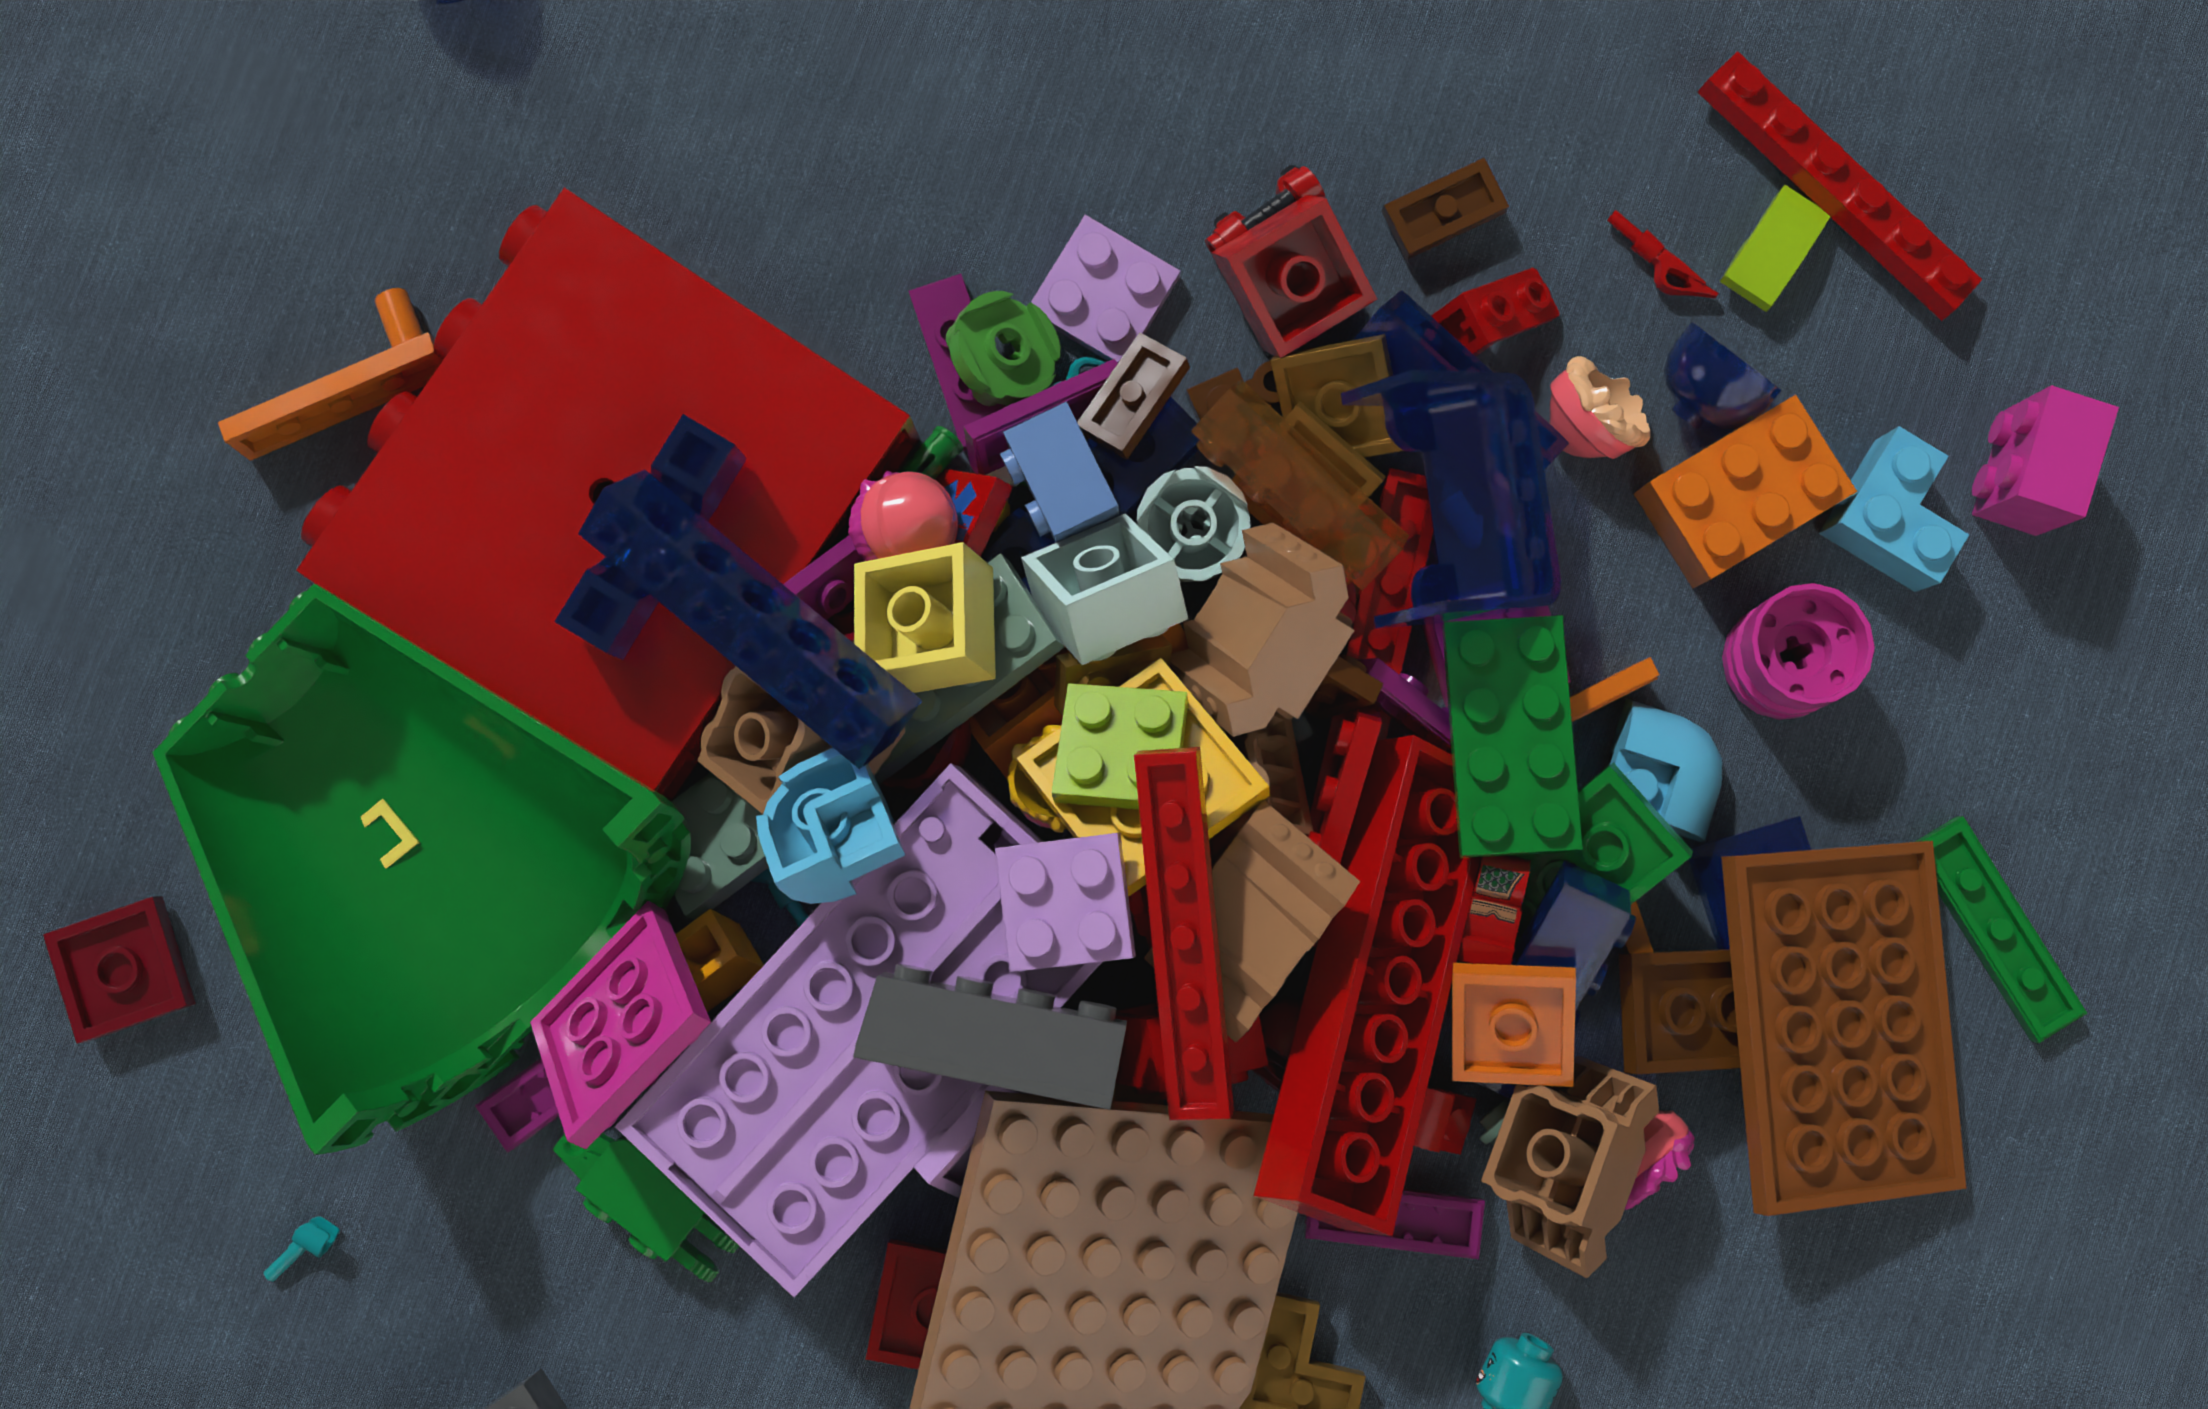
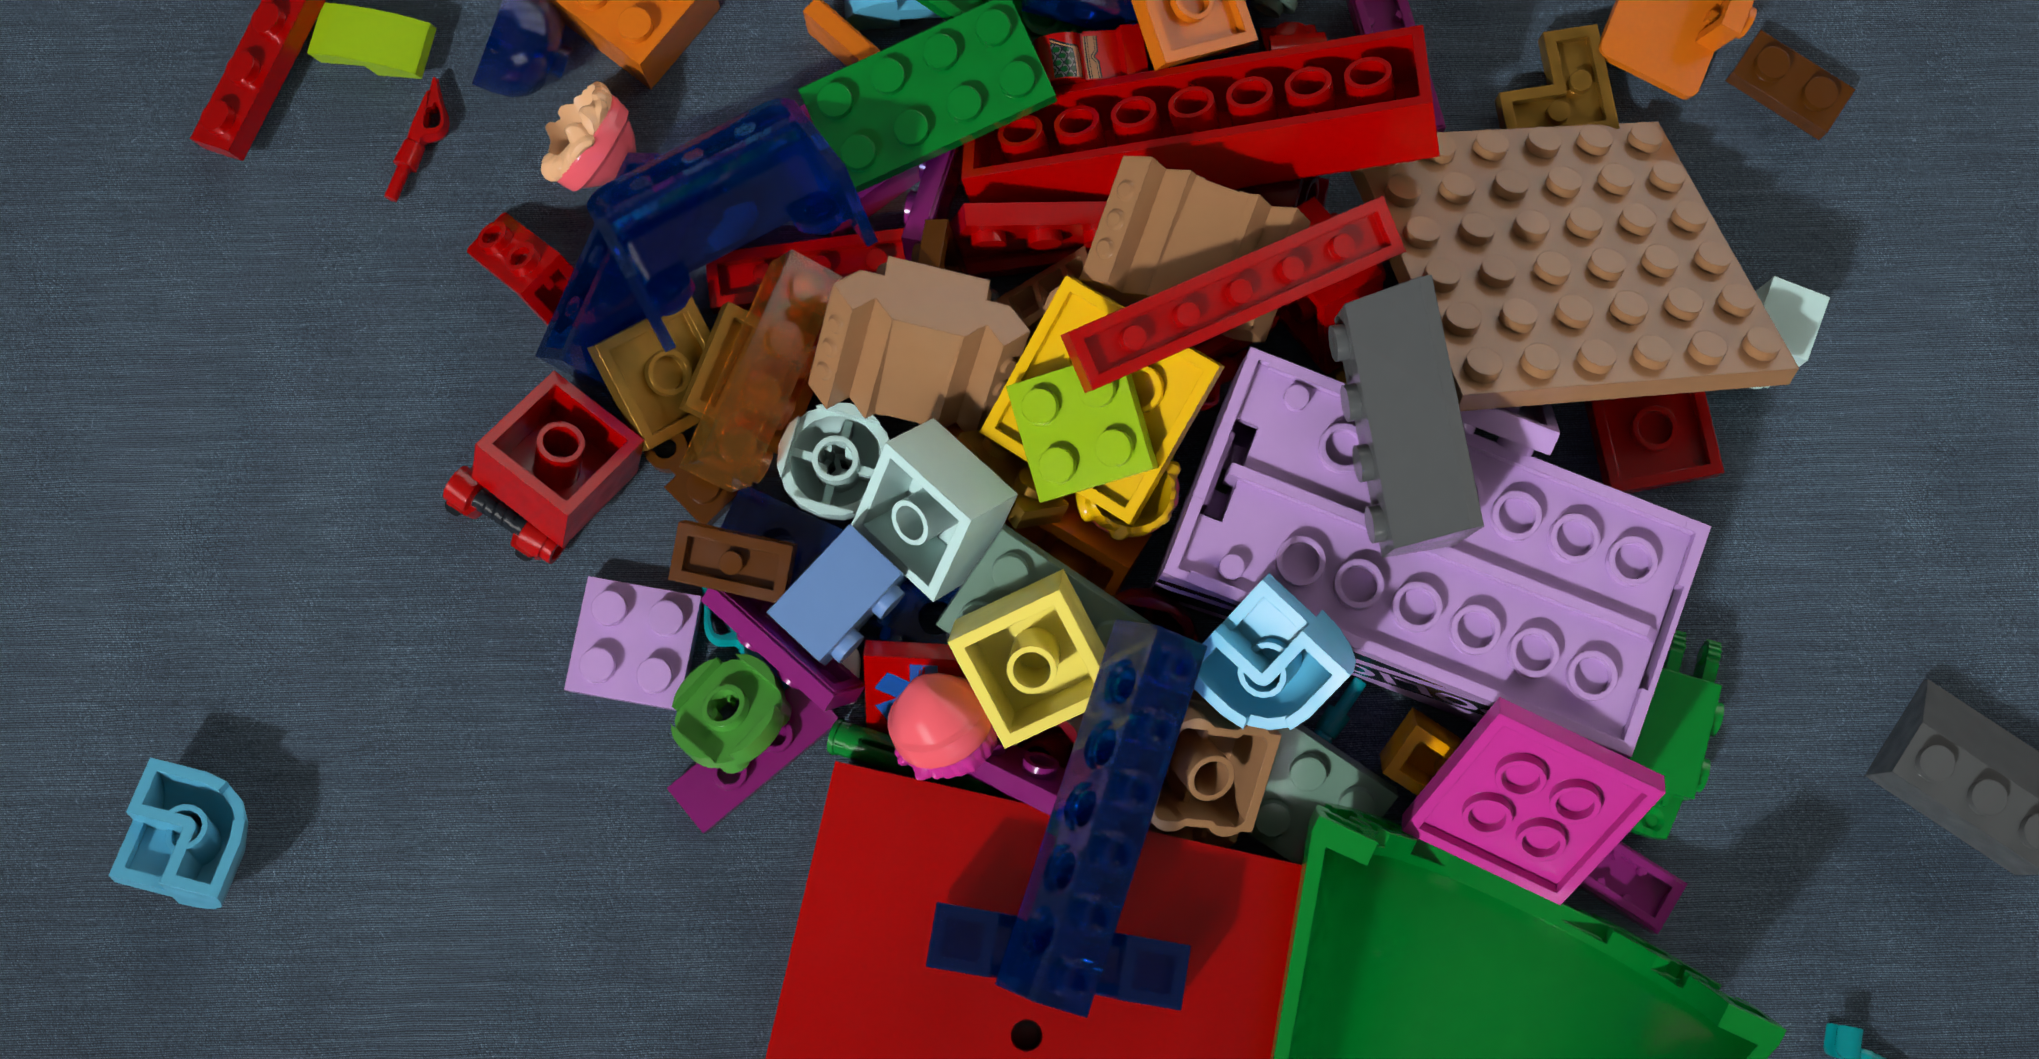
camera: 115 degrees left, 5 degrees down
(1065, 902) = (1251, 411): lavender plate -> none
(1445, 208) = (438, 350): reddish brown plate -> none

